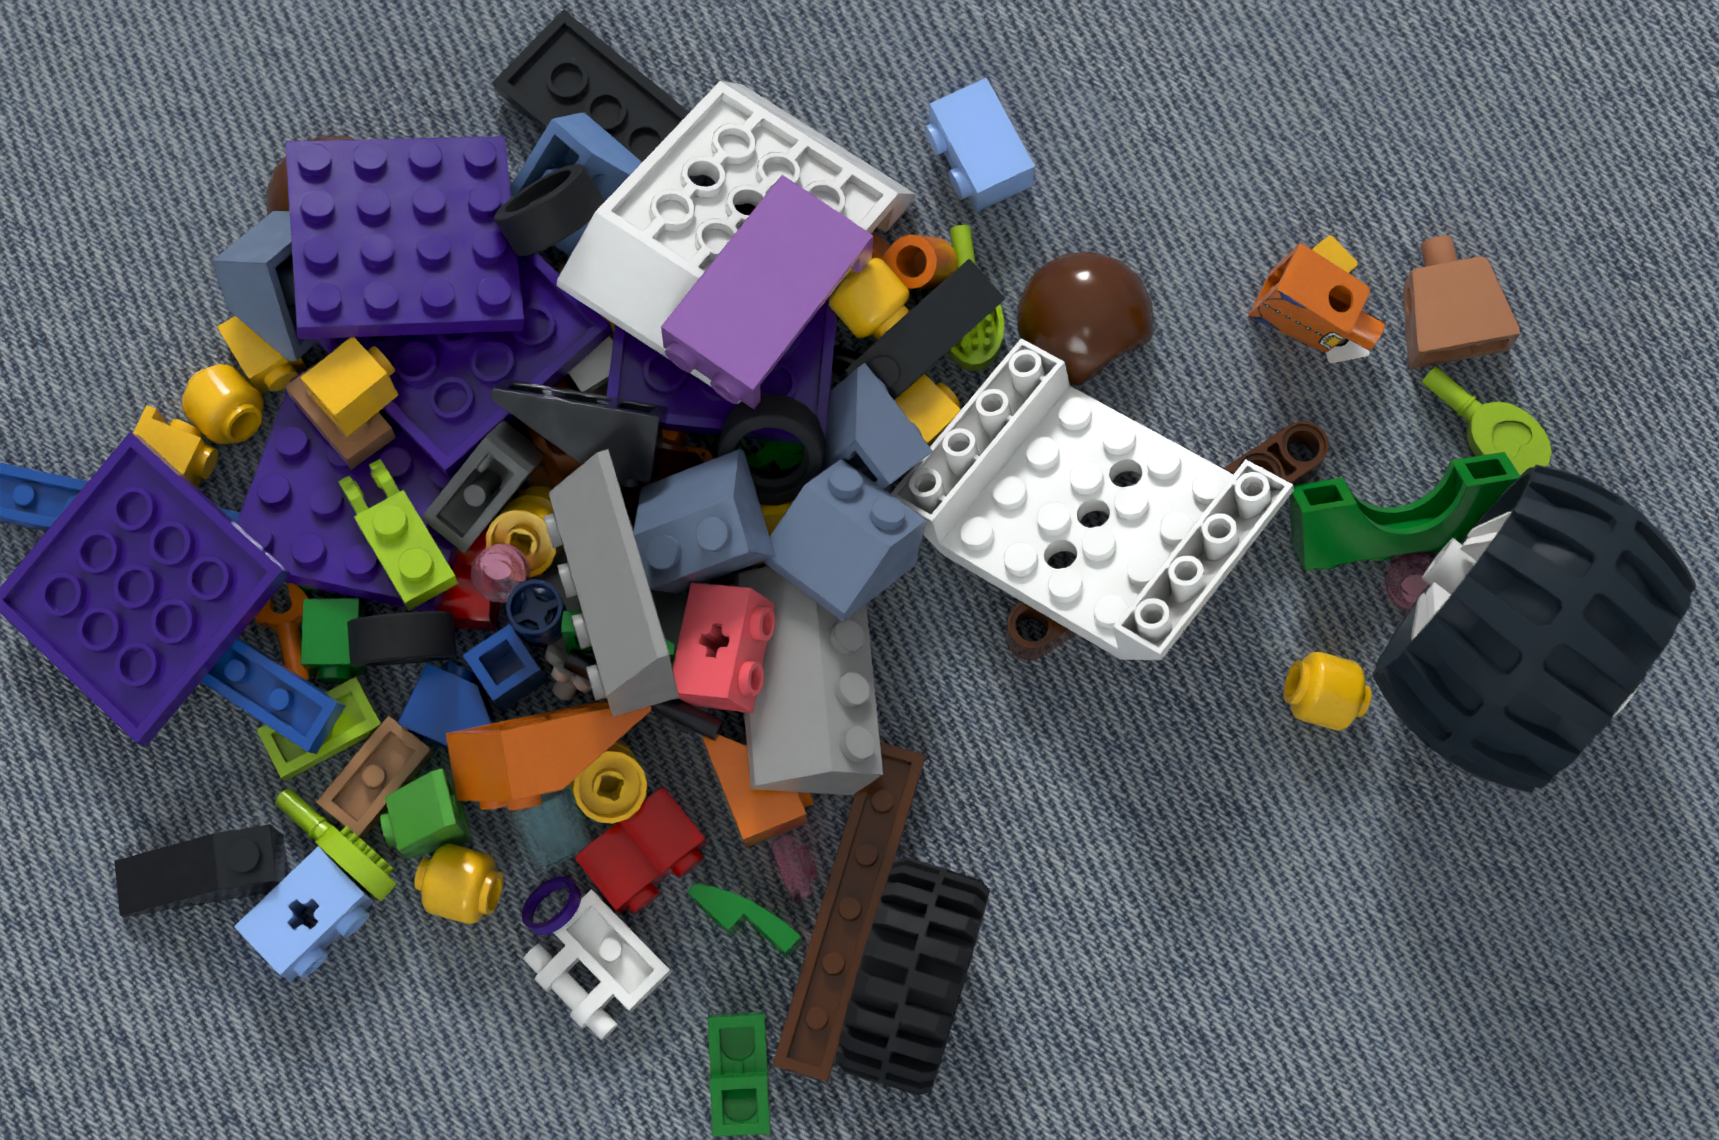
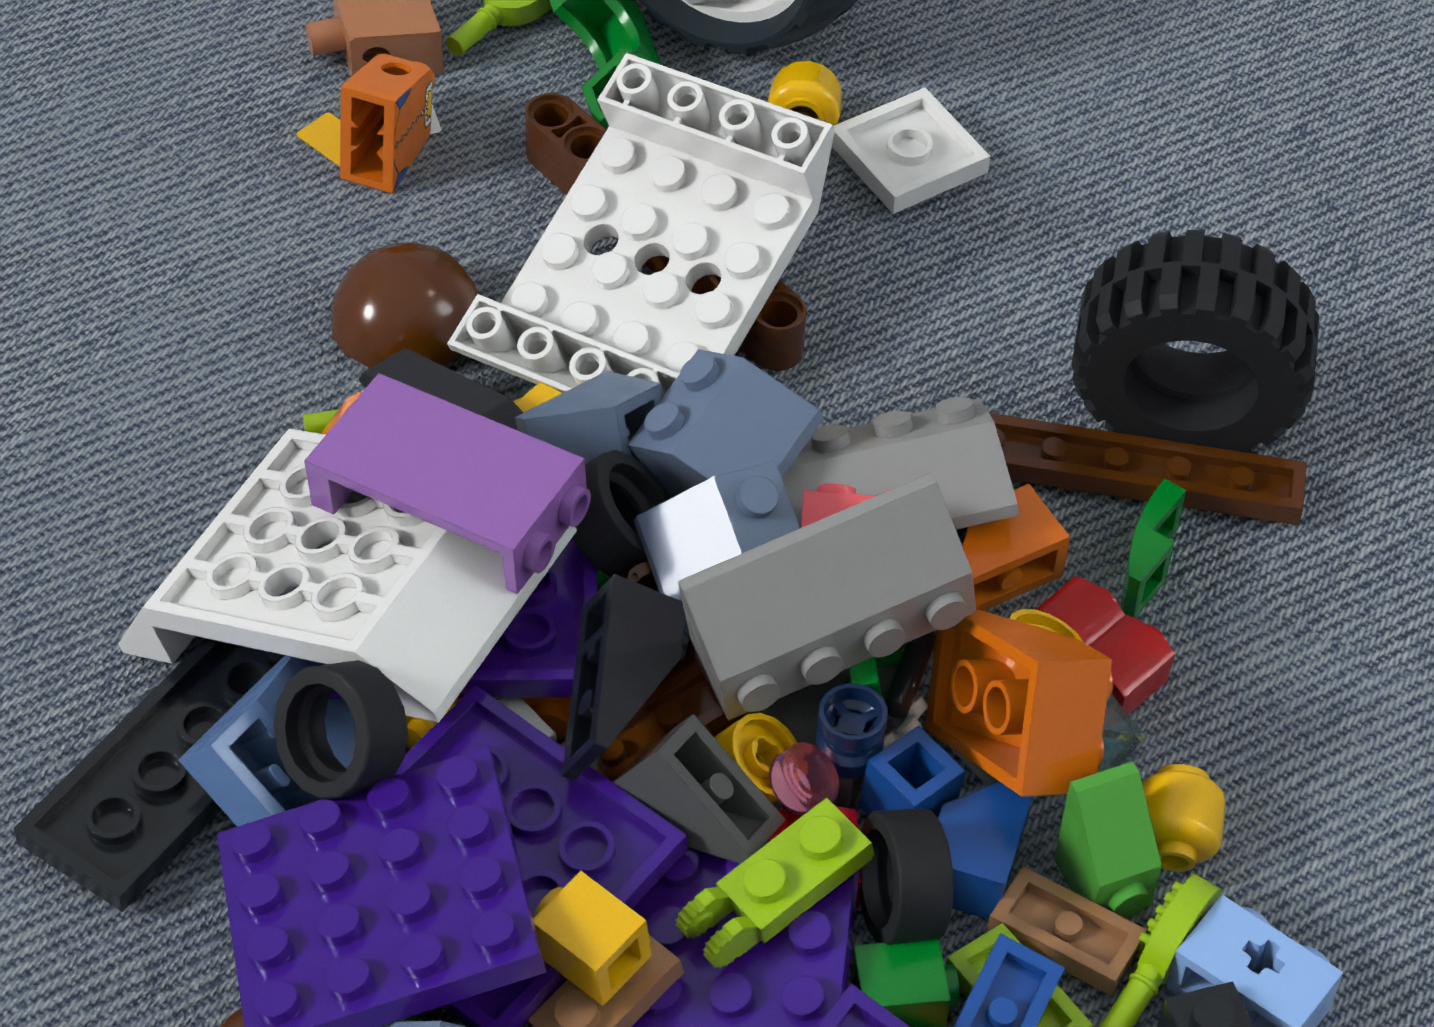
camera: 100 degrees left, 25 degrees down
(562, 917) = (1210, 720): dark purple piece -> none
(610, 952) = (1217, 672): white plate -> none
(738, 1074) = (1325, 553): green slope -> none
(794, 866) = (1088, 509): clear pink plate -> none
(979, 145) = (203, 404): light blue brick -> none
(1264, 785) = (909, 150): none -> white plate
(1404, 579) = (679, 53): clear pink tile -> none

